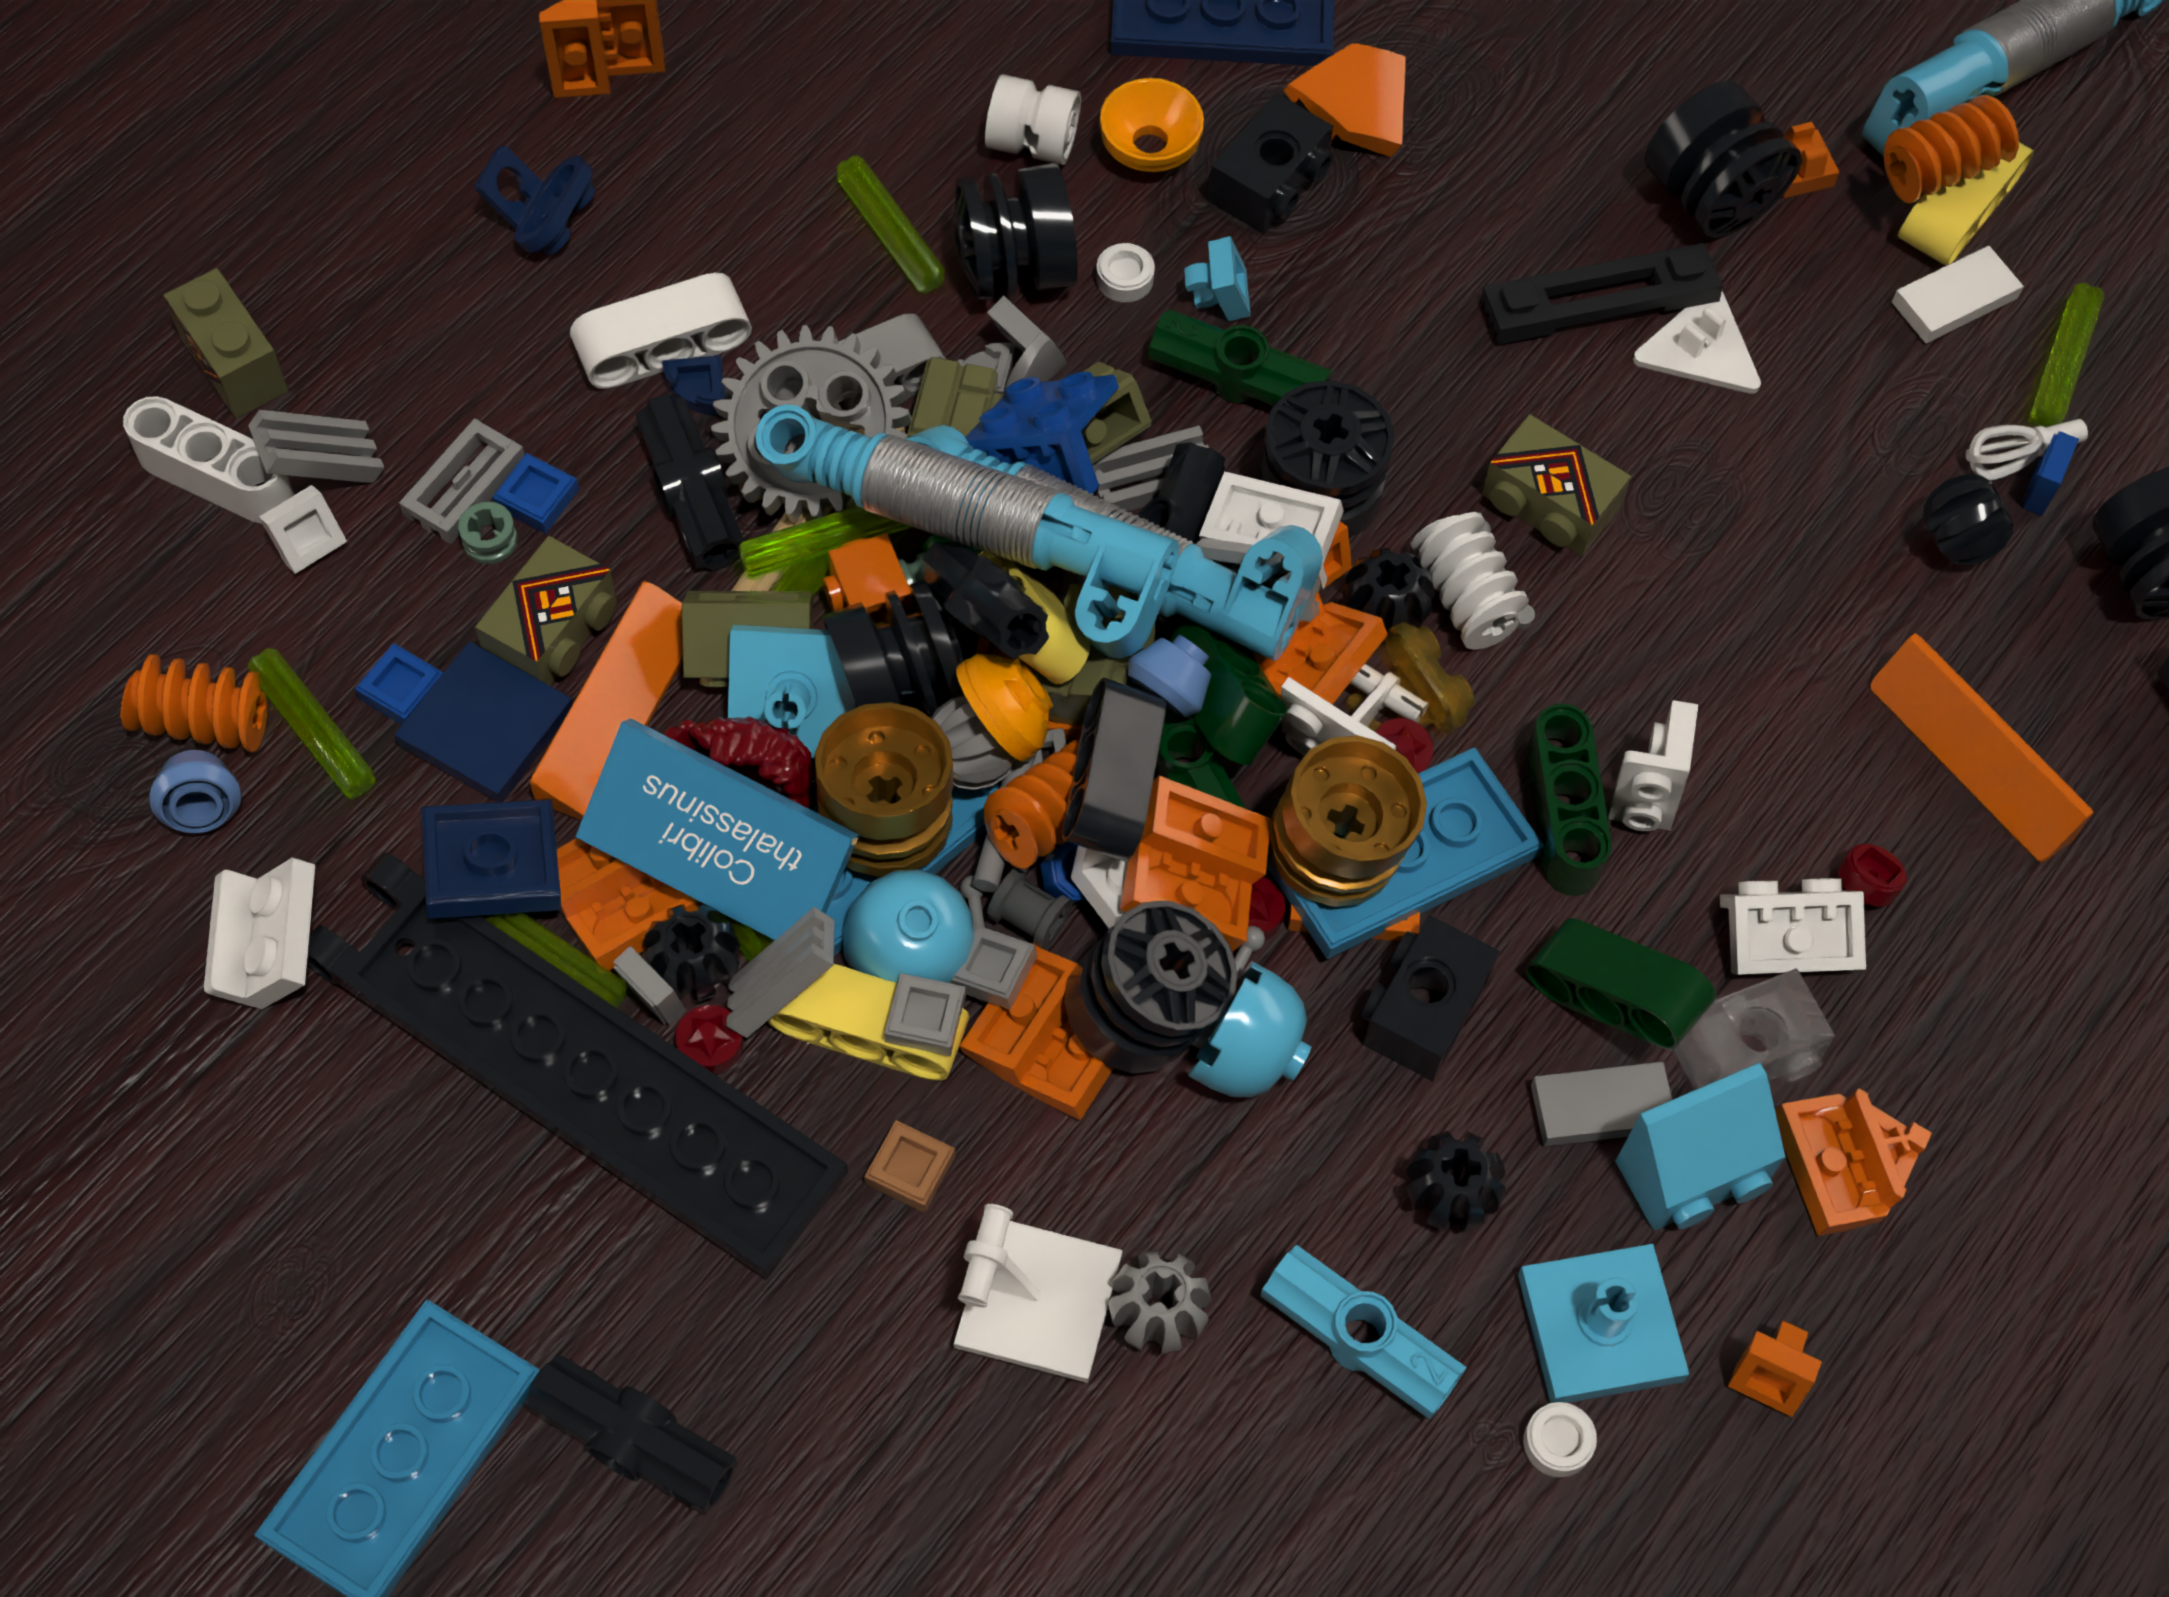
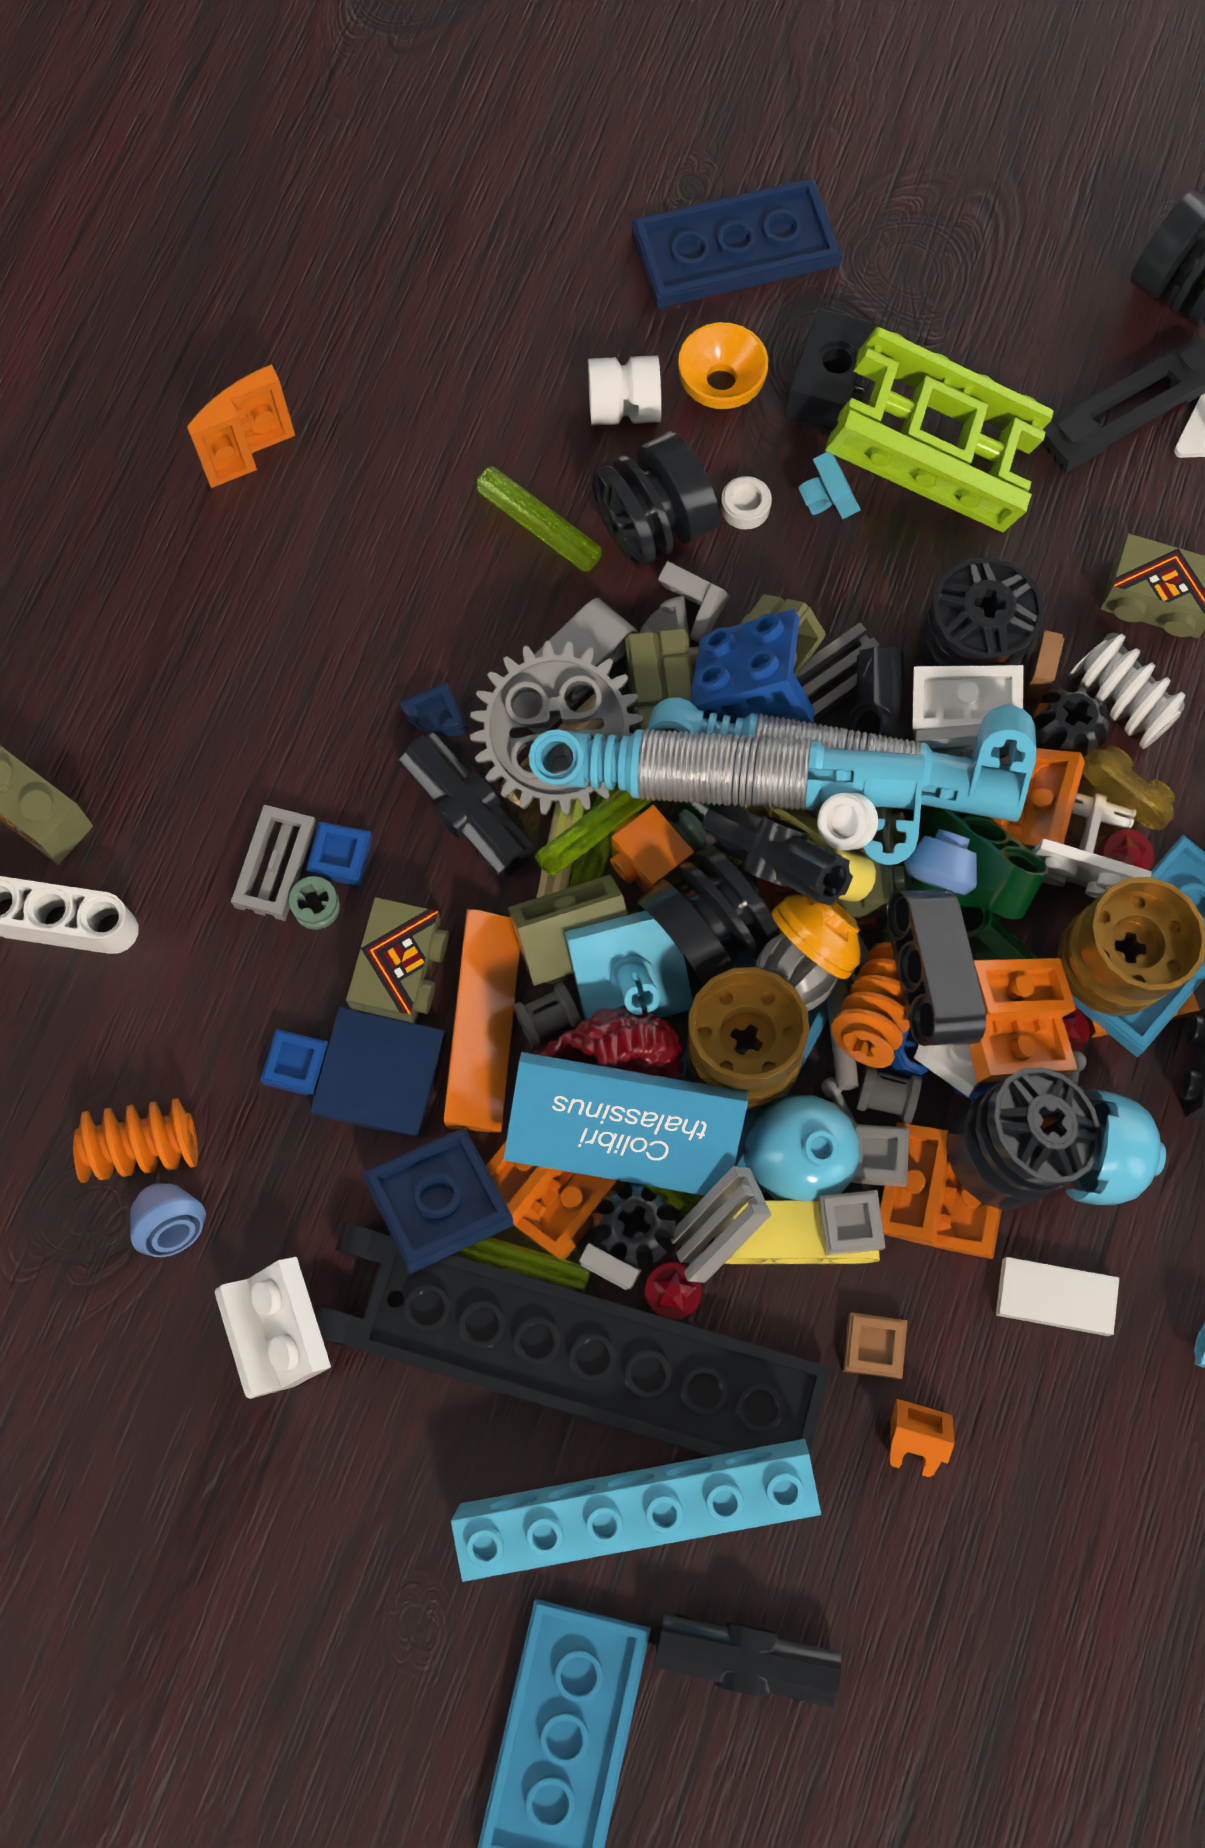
camera: 15 degrees left, 10 degrees up
(303, 529) = (160, 952): white tile -> none
(312, 723) = (235, 1122): clear neon green axle -> none
(315, 437) = (137, 870): light grey tile -> none
(548, 204) = (248, 588): dark blue bracket -> none
(569, 1228) = (635, 1510): none -> medium azure brick
(670, 323) = (386, 674): white beam -> none
(676, 709) = (547, 1014): none -> dark grey bush
(921, 1263) = (921, 1433): none -> orange tile
(1035, 1296) = (1022, 1426): white plate -> none
(1066, 581) = (847, 821): none -> white tile
(1135, 1179) = (1057, 1296): none -> white tile
(1162, 1282) = (1139, 1396): light grey piece -> none
(1214, 356) = (843, 557): dark green piece -> none
(1335, 281) = (925, 461): none -> lime fence
(1357, 94) = (876, 287): orange slope -> none
(1386, 522) = (1043, 665): none -> medium nougat tile

